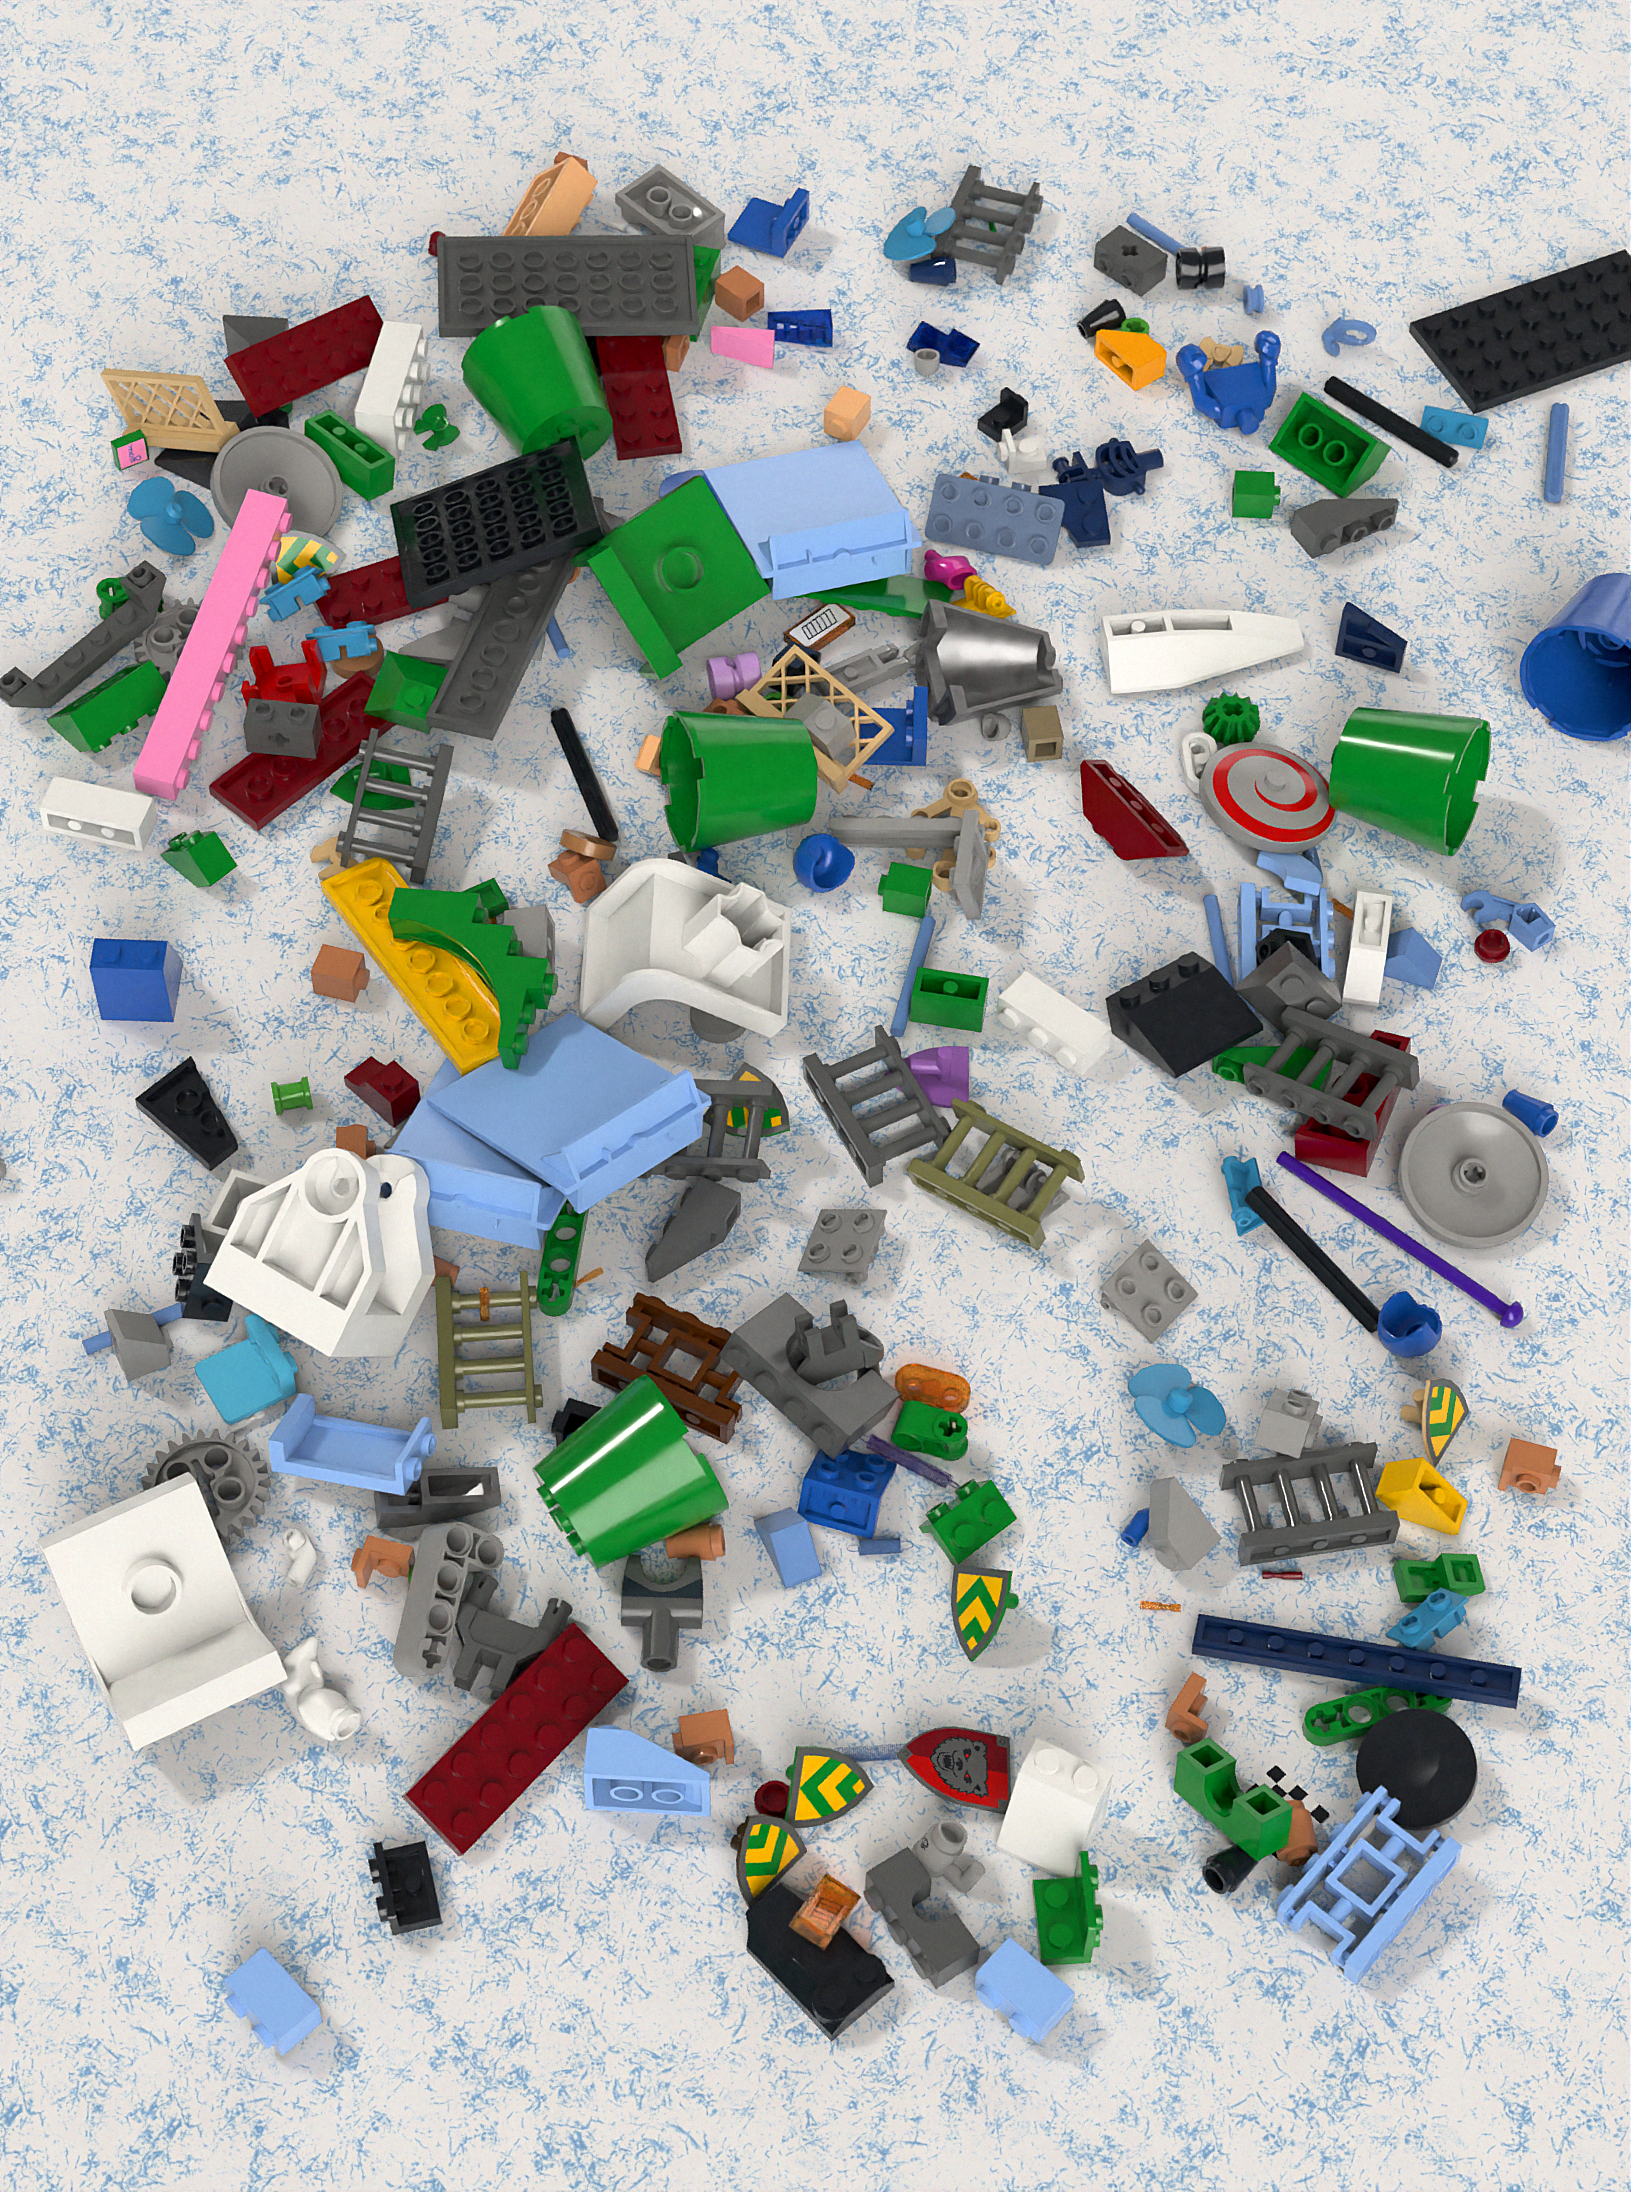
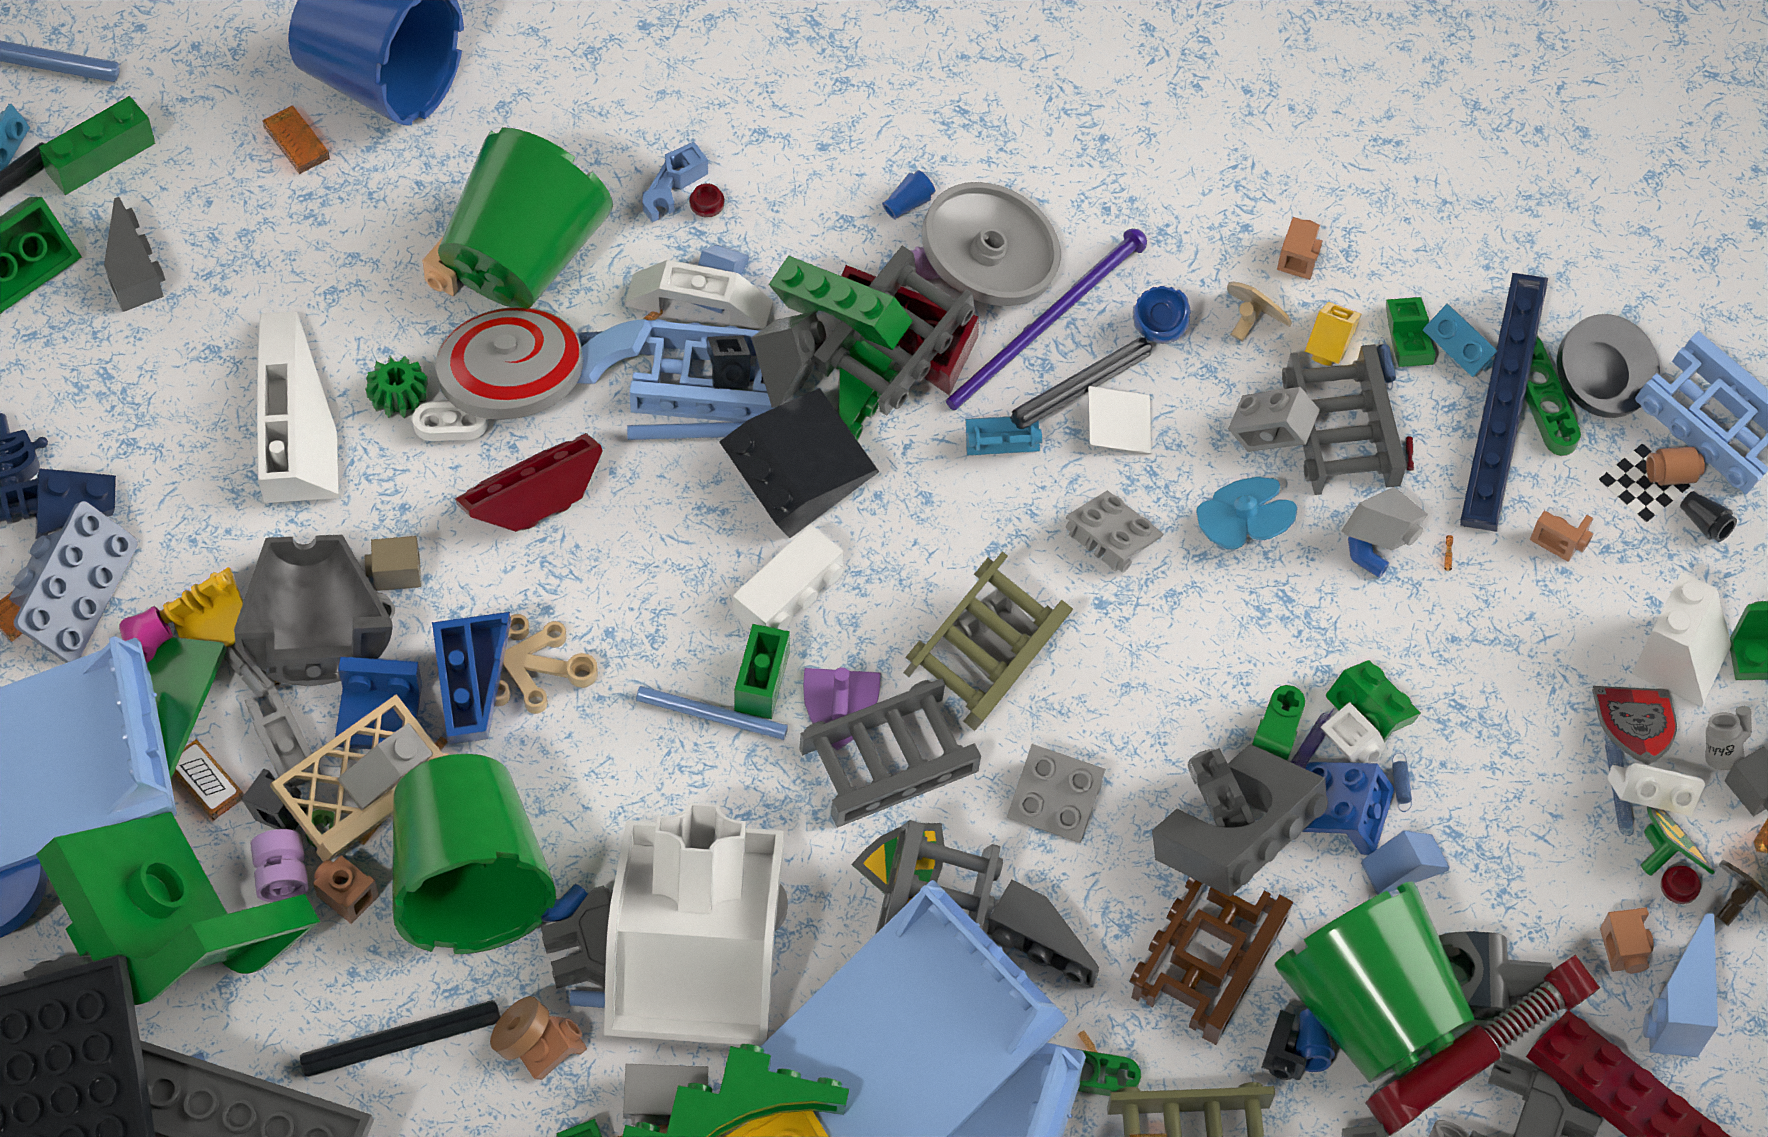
camera: 90 degrees left, 5 degrees up
(578, 1584) = (1479, 1047): none -> dark red piece
(649, 755) = (389, 955): light nougat bracket -> none
(822, 862) = (563, 786): blue hair -> none
(874, 1767) = (1656, 788): none -> white bracket
(906, 889) = (603, 707): green brick -> none
(917, 1492) = (1354, 735): none -> white bracket
(920, 779) = (469, 671): none -> blue wedge
(921, 832) = (580, 632): light grey bracket -> none
(933, 1386) = (1229, 725): clear orange plate -> none
(979, 1605) = (1474, 692): shield -> none
(1253, 1820) = (1685, 485): green arch -> none
(1254, 494) = (72, 333): green brick -> none
(1280, 1299) = (1119, 420): none -> white sticker
(1330, 1030) = (865, 309): none -> green arch
(1369, 641) = (307, 249): dark blue wing -> none
(1393, 1553) = (1386, 363): none -> medium blue piece
(1460, 488) = (97, 145): none -> green brick
(1504, 632) = (296, 139): none -> clear orange tile

